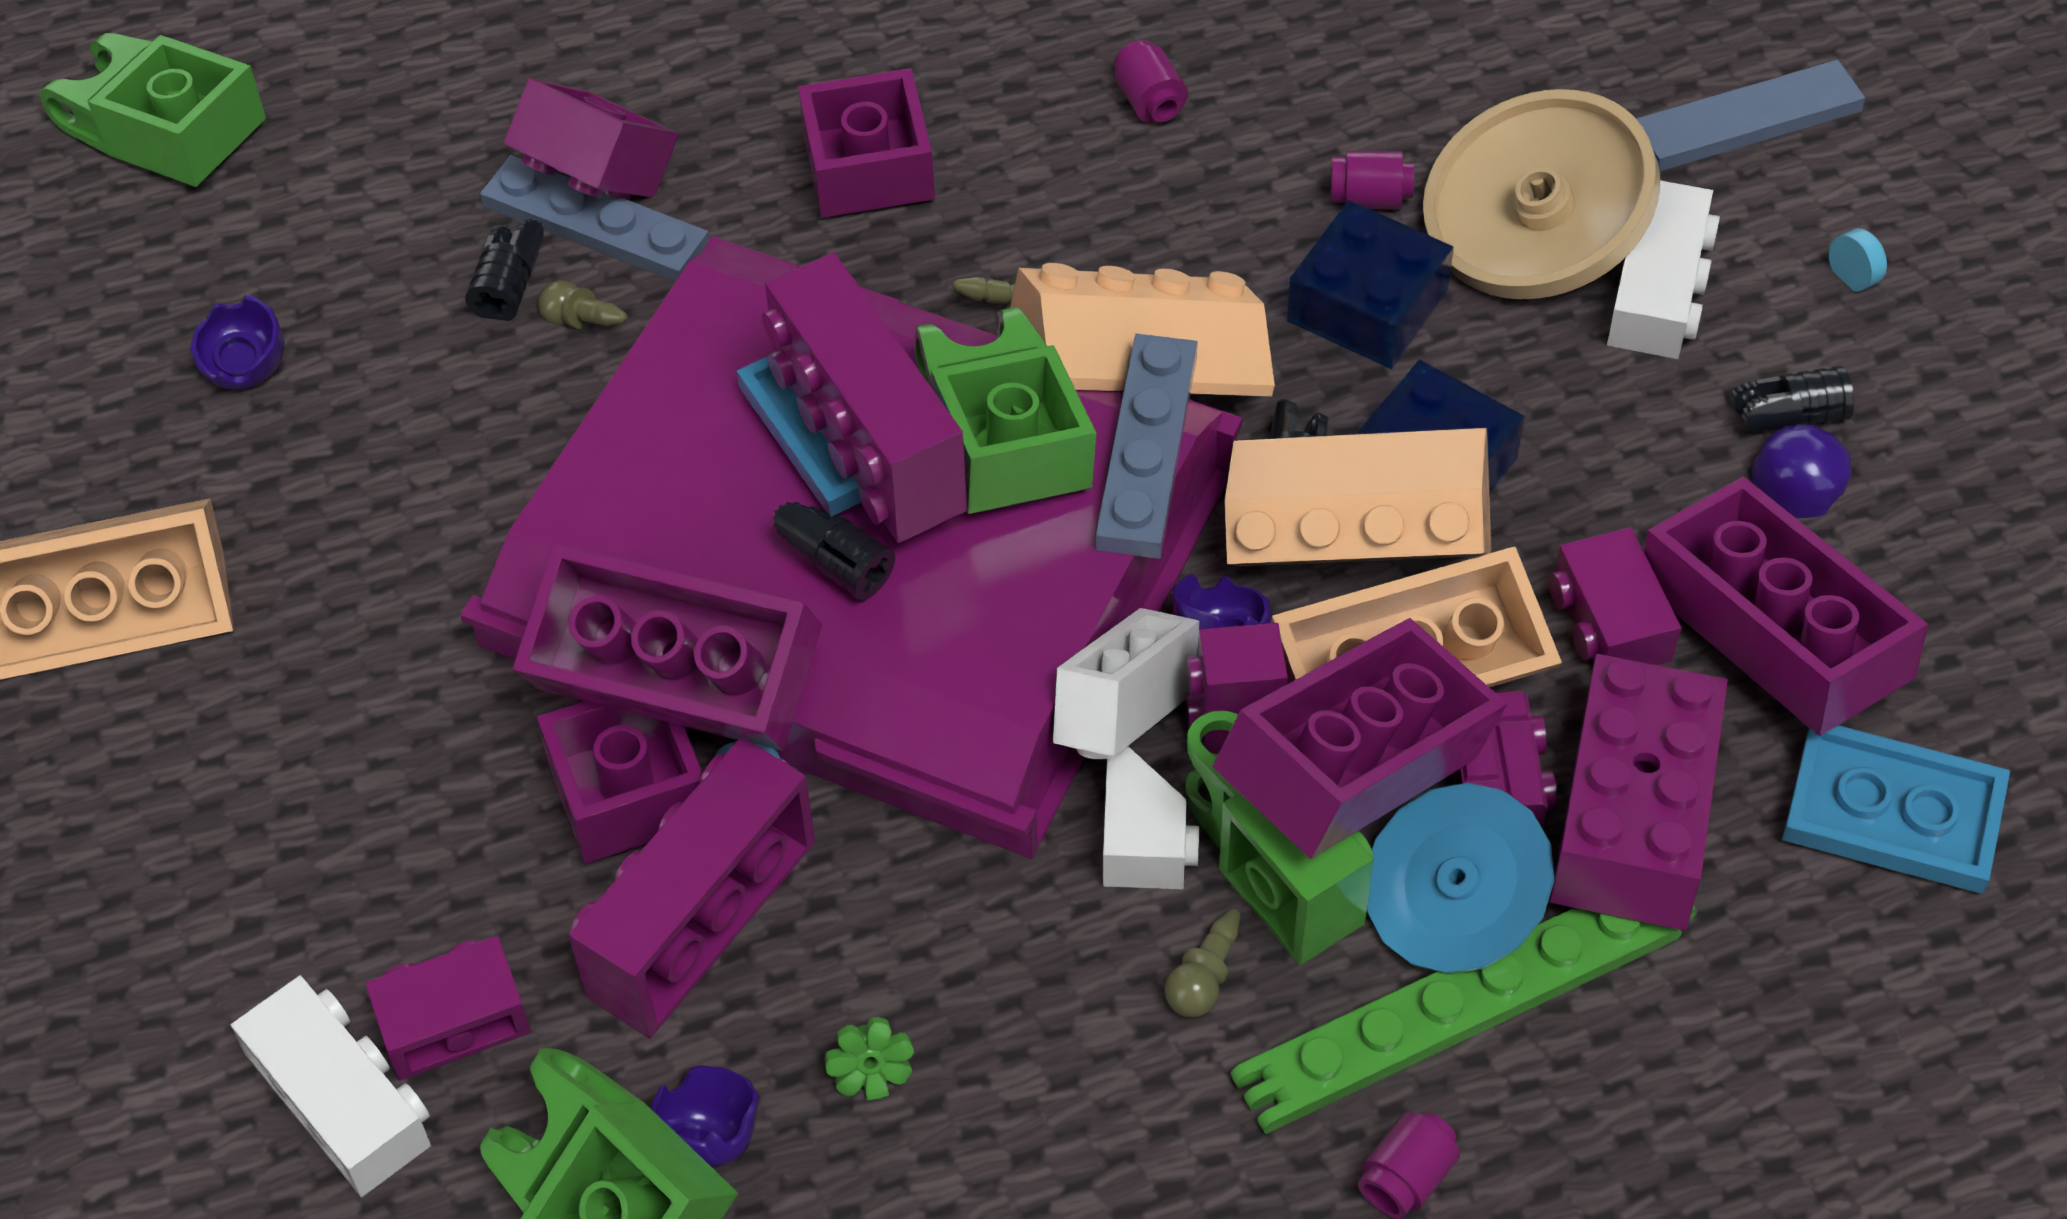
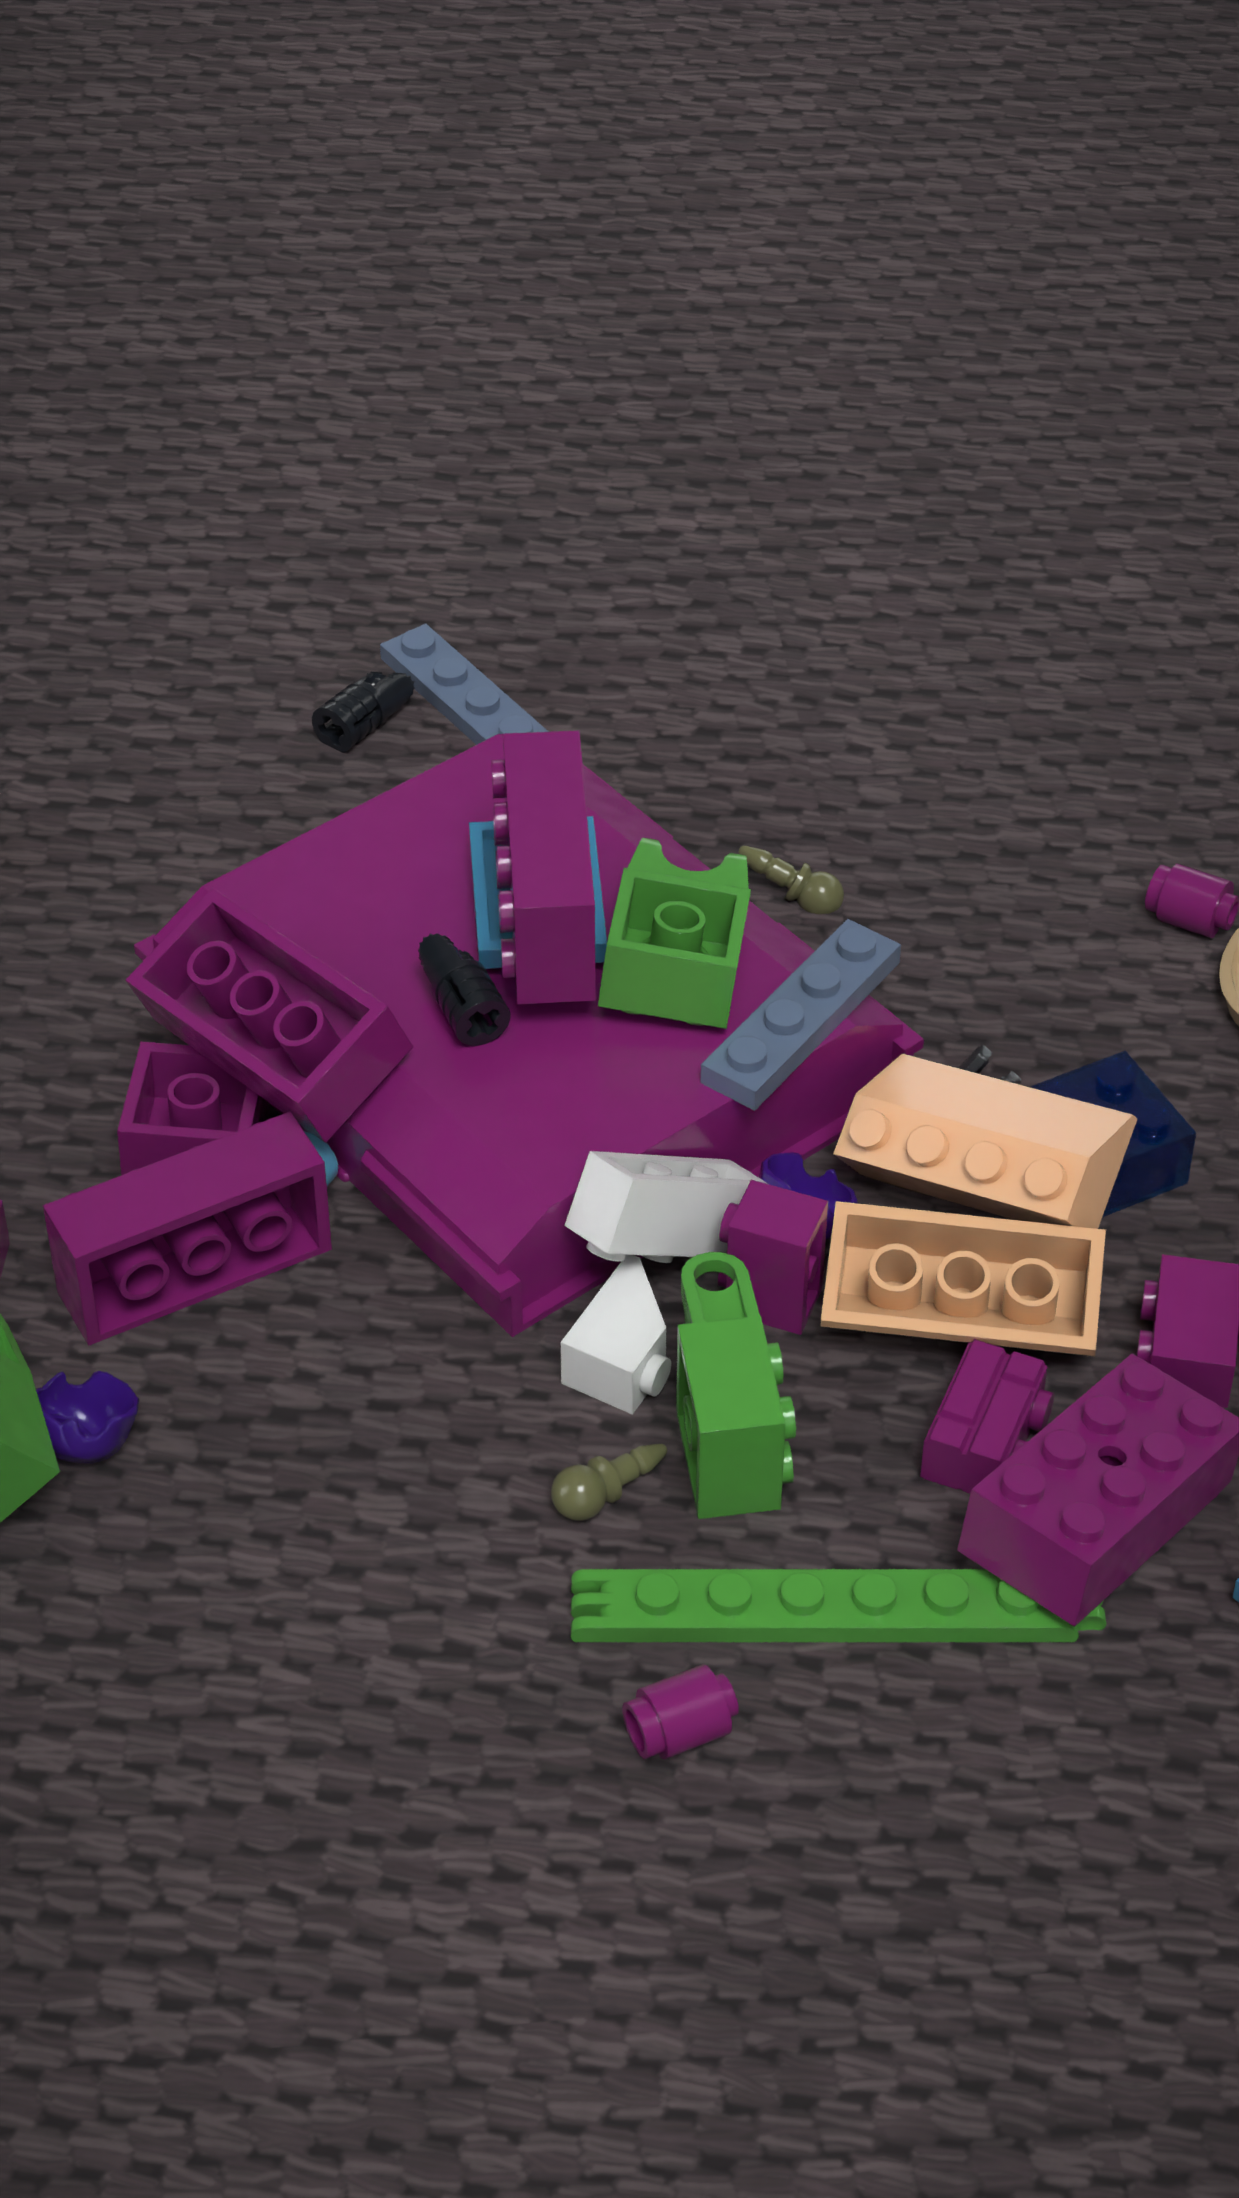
camera: 25 degrees right, 10 degrees down
(159, 105) = (159, 490): bright green brick -> none
(238, 344) = (102, 688): dark purple hair -> none
(572, 305) = (400, 755): olive bar -> none
(589, 140) = (490, 626): magenta brick -> none
(866, 142) = (735, 711): magenta brick -> none
(869, 1059) = (255, 1429): bright green plant -> none
(1097, 313) = (944, 953): light nougat slope -> none
(1149, 82) = (1034, 752): magenta brick -> none
(1358, 736) = (831, 1311): magenta brick -> none
(1369, 284) = (1130, 981): clear blue brick -> none
(1460, 878) = (880, 1493): dark azure piece -> none

